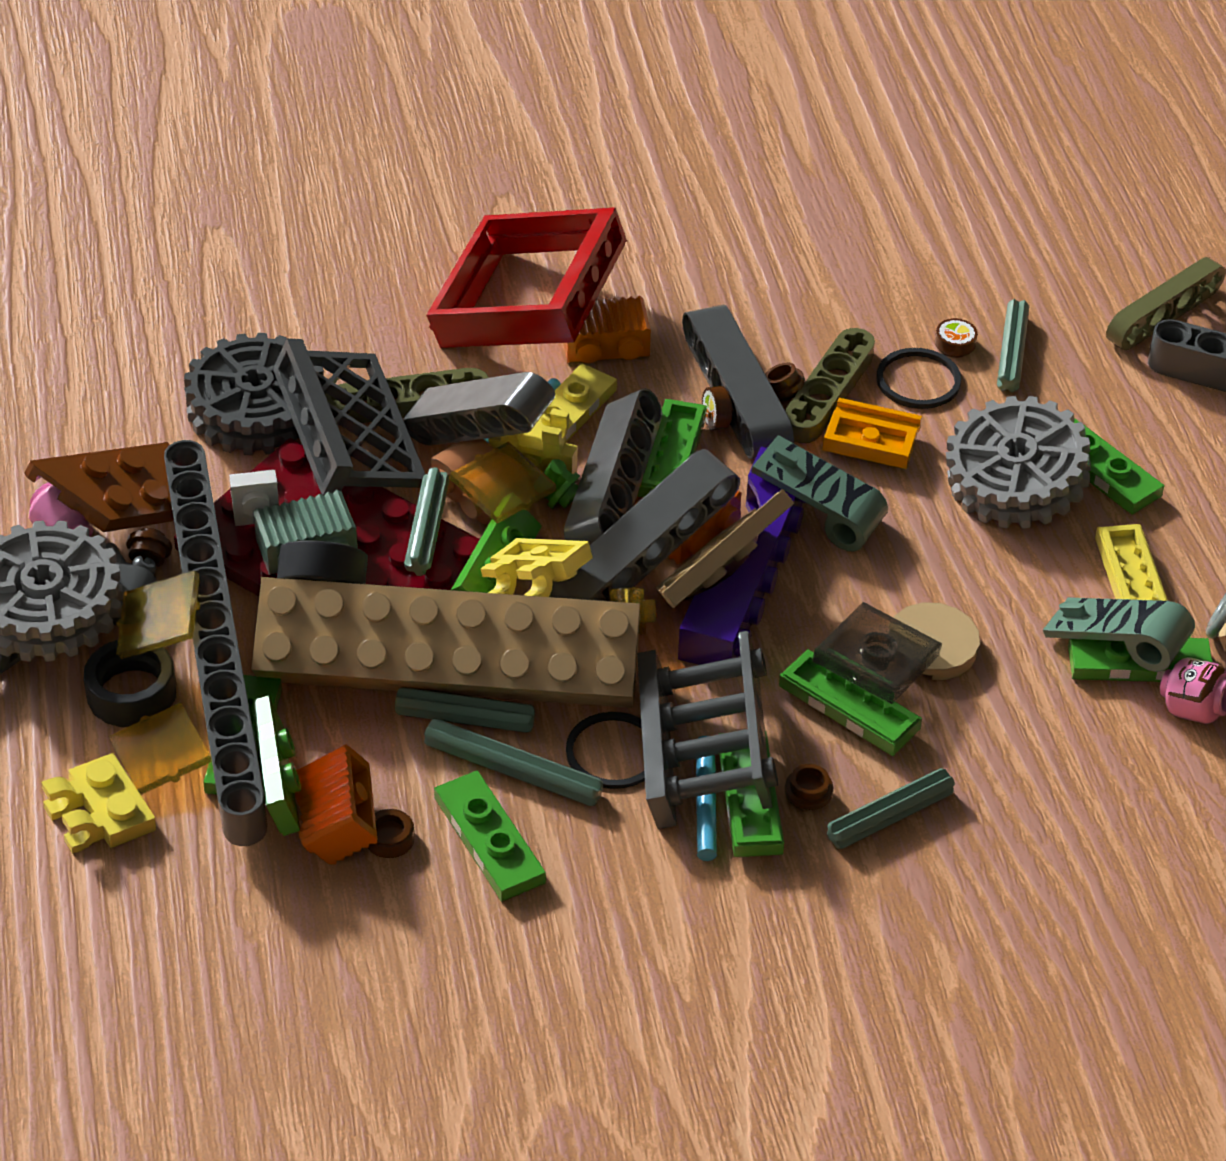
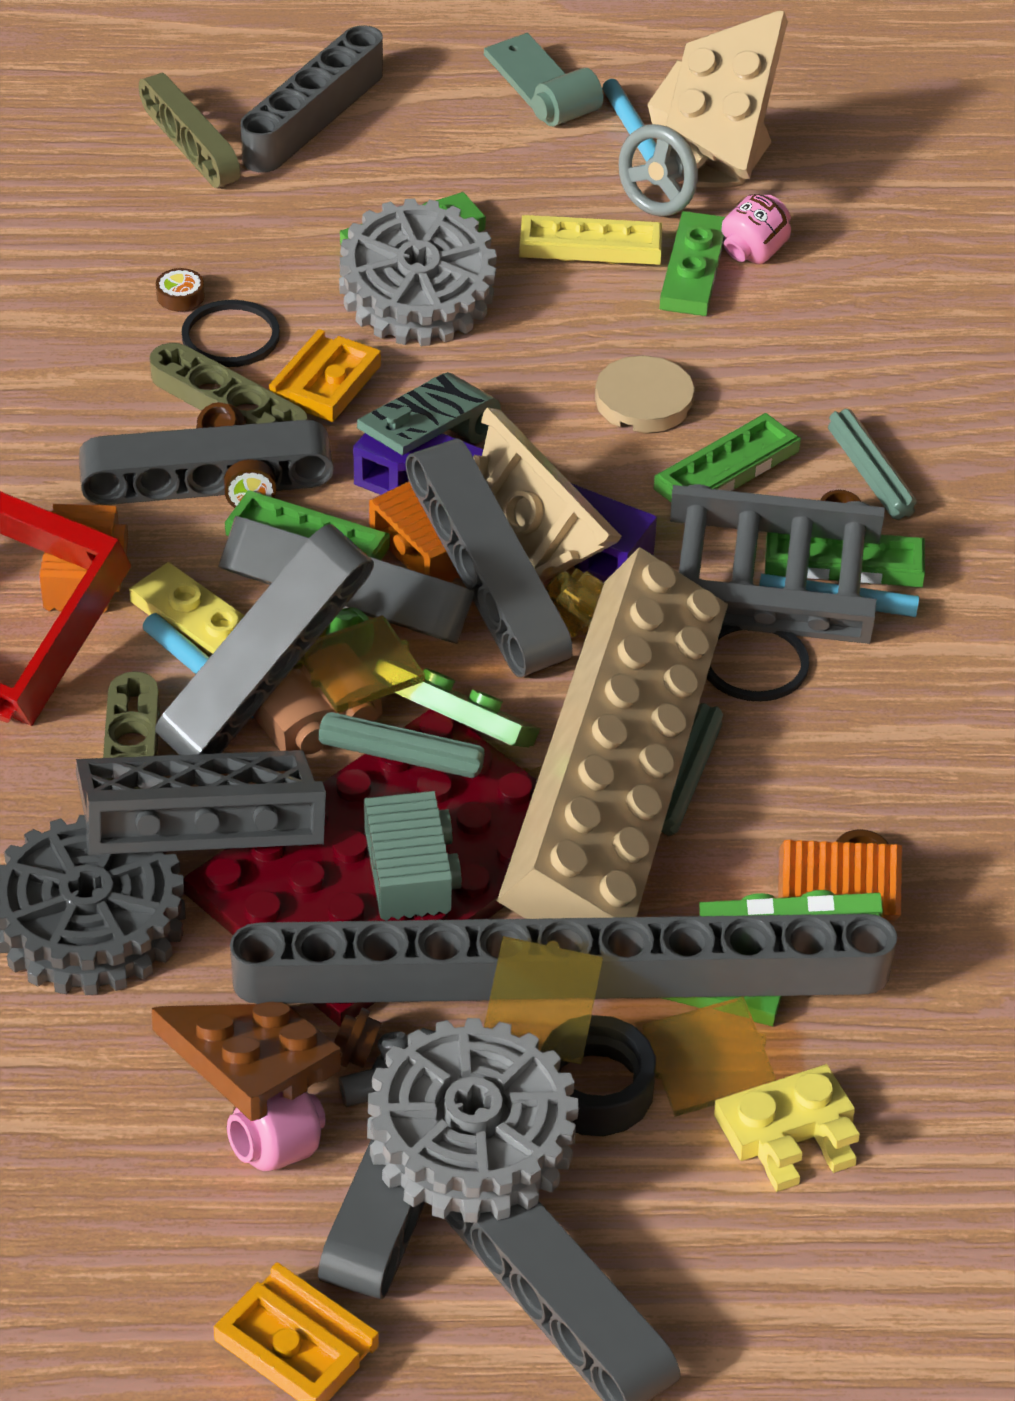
camera: 80 degrees left, 0 degrees up
(251, 492) = (339, 897): white bracket -> none
(322, 562) = (506, 825): black tyre -> none
(489, 835) = (874, 772): bright green plate -> none
(513, 762) = (770, 739): sand green axle -> none
(537, 561) = (509, 641): light yellow plate -> none
(877, 652) = (676, 422): clear smoke plate -> none
(1013, 345) = (209, 250): sand green axle -> none
(1150, 628) = (672, 248): sand green door -> none

